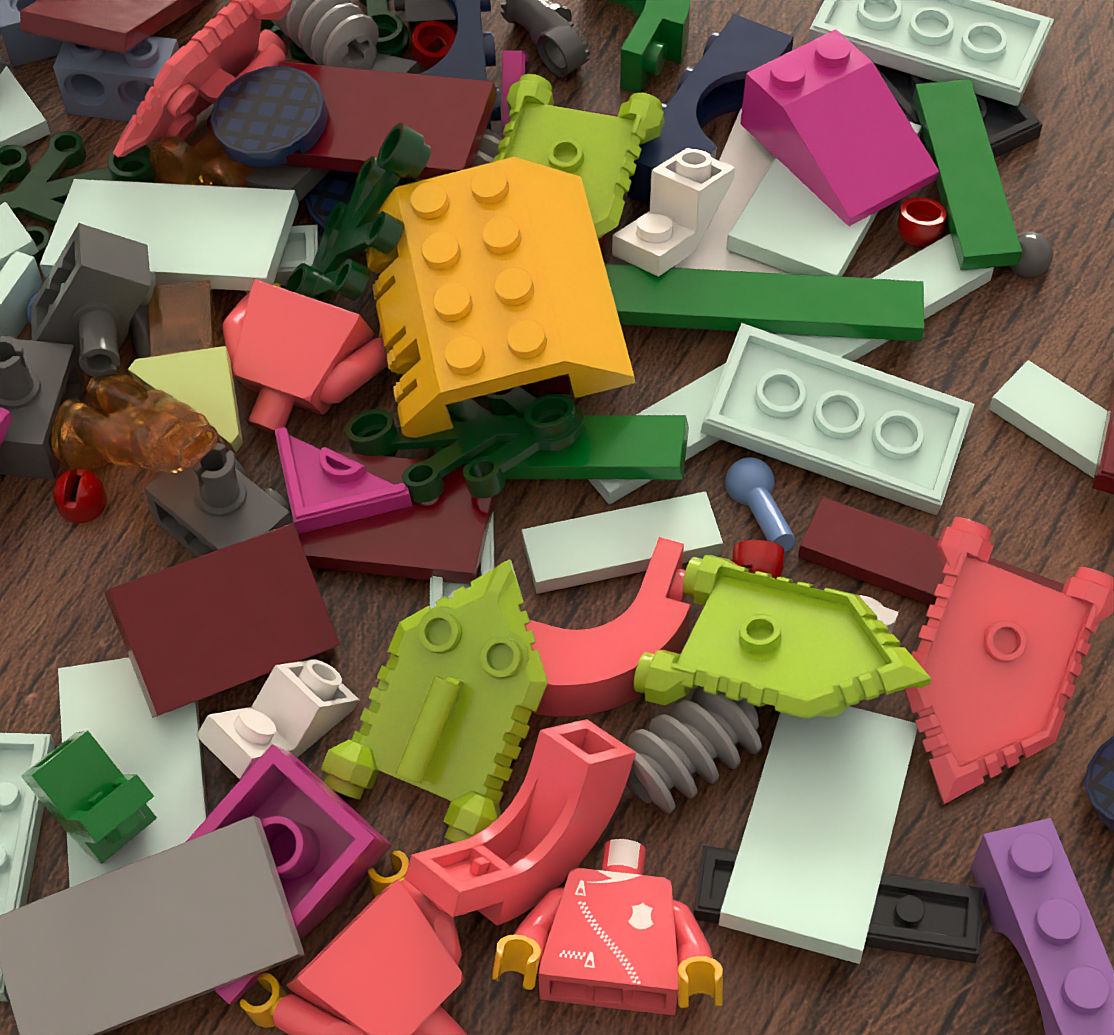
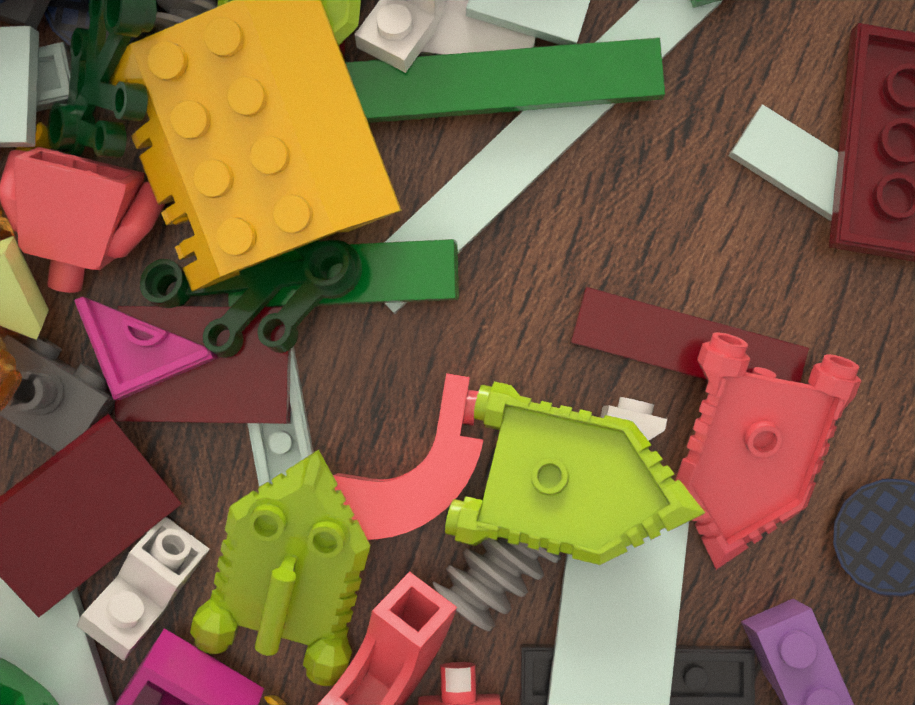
camera: 10 degrees left, 30 degrees up
(618, 541) = (411, 357): light aqua tile -> none
(751, 484) = (519, 274): medium blue bar -> none
(759, 556) = (536, 368): red hinge -> none
(838, 419) = (591, 199): light aqua tile -> none

